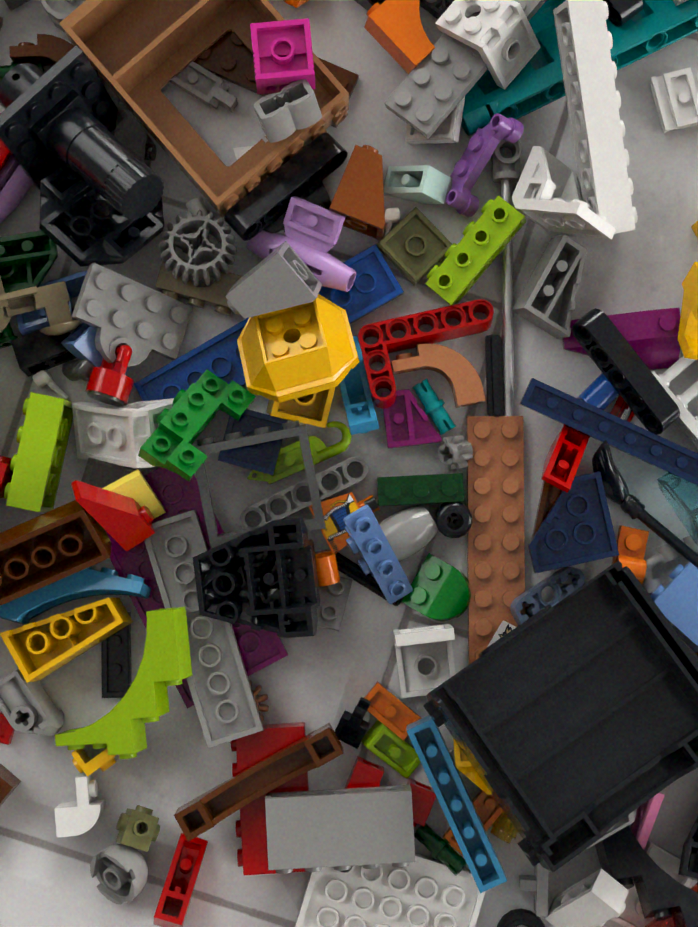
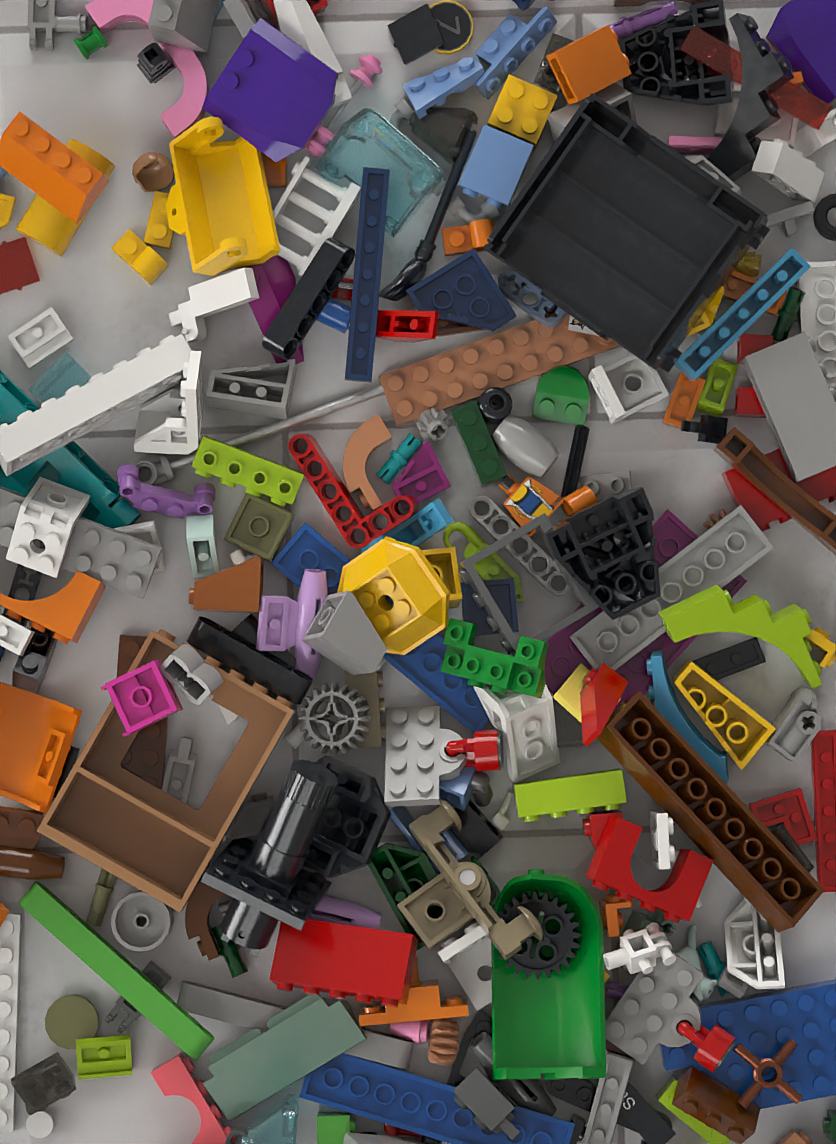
camera: 110 degrees left, 0 degrees up
(376, 554) = (551, 460): medium blue bracket -> none
(494, 375) = (351, 414): black axle -> none
(635, 106) = (59, 378): none -> clear light blue panel
(659, 277) = (211, 298): none -> white piece

